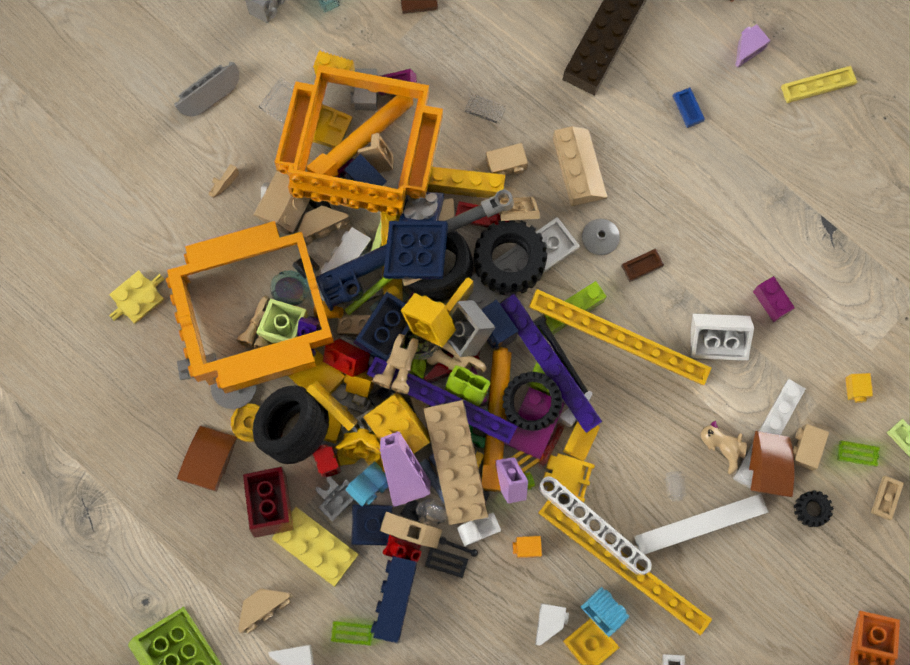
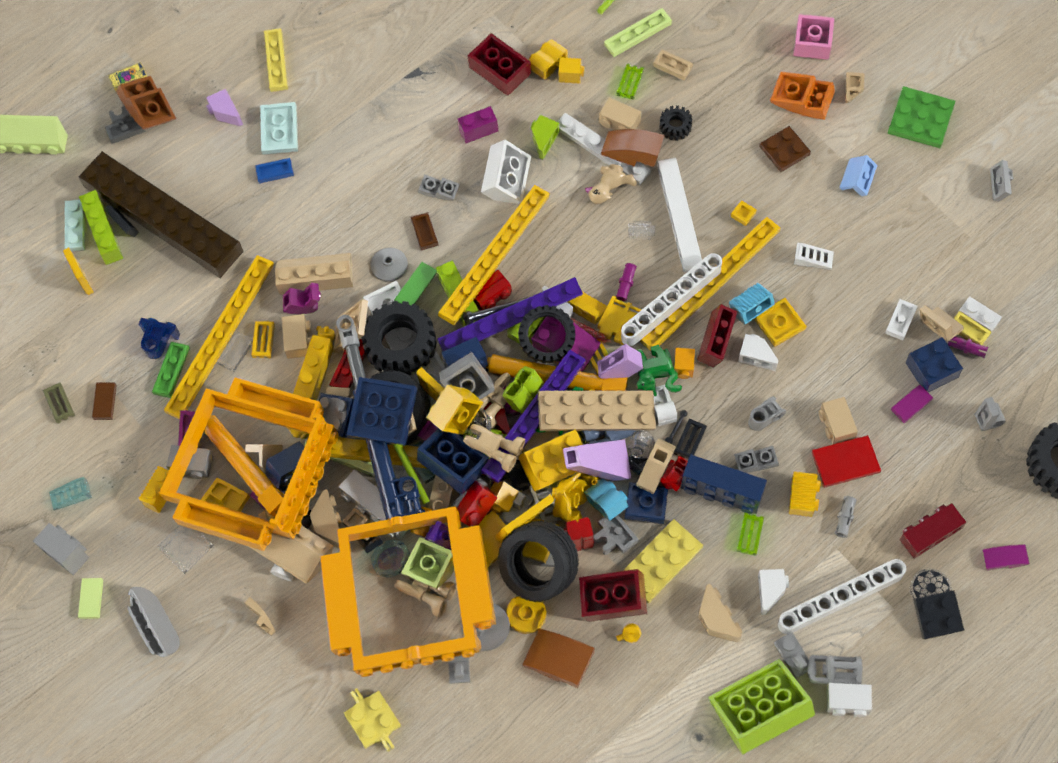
camera: 75 degrees left, 10 degrees down
(227, 32) = (90, 598): none -> yellowish green tile
(238, 524) = (630, 633): none -> yellow piece
(321, 252) = (356, 518): none -> tan slope
(431, 632) = (756, 460): none -> light grey slope
(458, 54) = (170, 369): none -> bright green tile
(483, 639) = (768, 411): none -> light grey piece
(490, 33) = (156, 334): none -> clear blue pin
(499, 91) = (219, 336): none -> yellow plate
(514, 187) = (325, 332): none -> yellow piece
(516, 132) = (268, 353): none -> yellow tile
(516, 519) = (657, 367): none -> green animal
(544, 158) = (301, 301): none -> magenta brick
(561, 578) = (717, 335): none -> dark red brick
(575, 265) = (416, 284): none -> bright green tile
(584, 344) = (493, 291): none -> red brick
(613, 477) = (626, 282): none -> magenta pin
(694, 271) = (437, 188): none -> light grey slope
(713, 593) = (743, 213): none -> yellow plate
(737, 102) = (279, 128): none -> light aqua plate
(774, 369) = (544, 134): none -> lime slope
(802, 633) = (785, 149): none -> reddish brown plate
(851, 310) = (499, 64): none -> dark red brick
(869, 360) = (547, 58): none -> yellow brick

